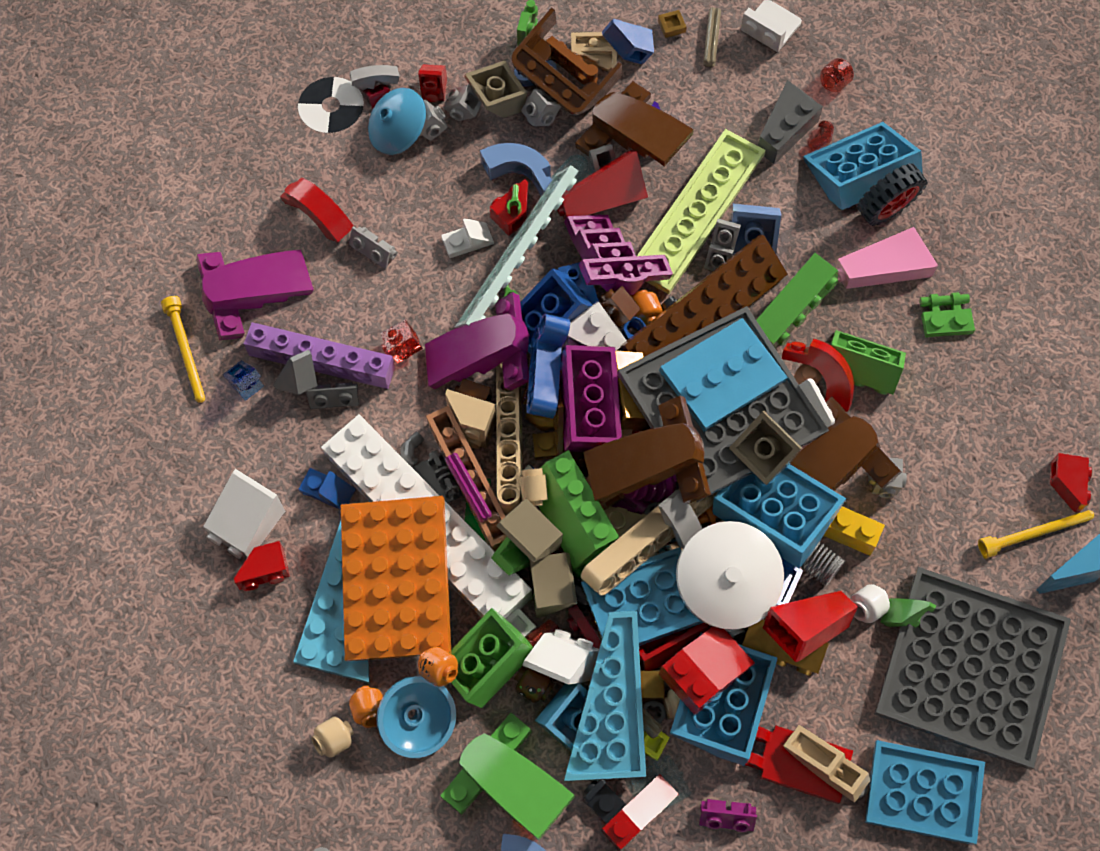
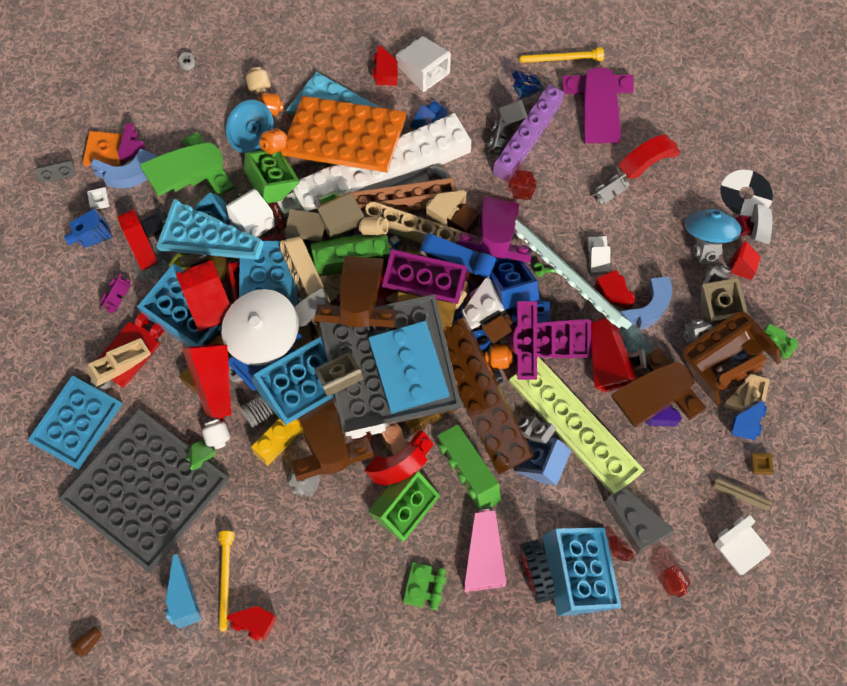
camera: 105 degrees right, 0 degrees up
(468, 487) = (390, 187): magenta axle -> none
(514, 200) = (609, 287): bright green hand -> none

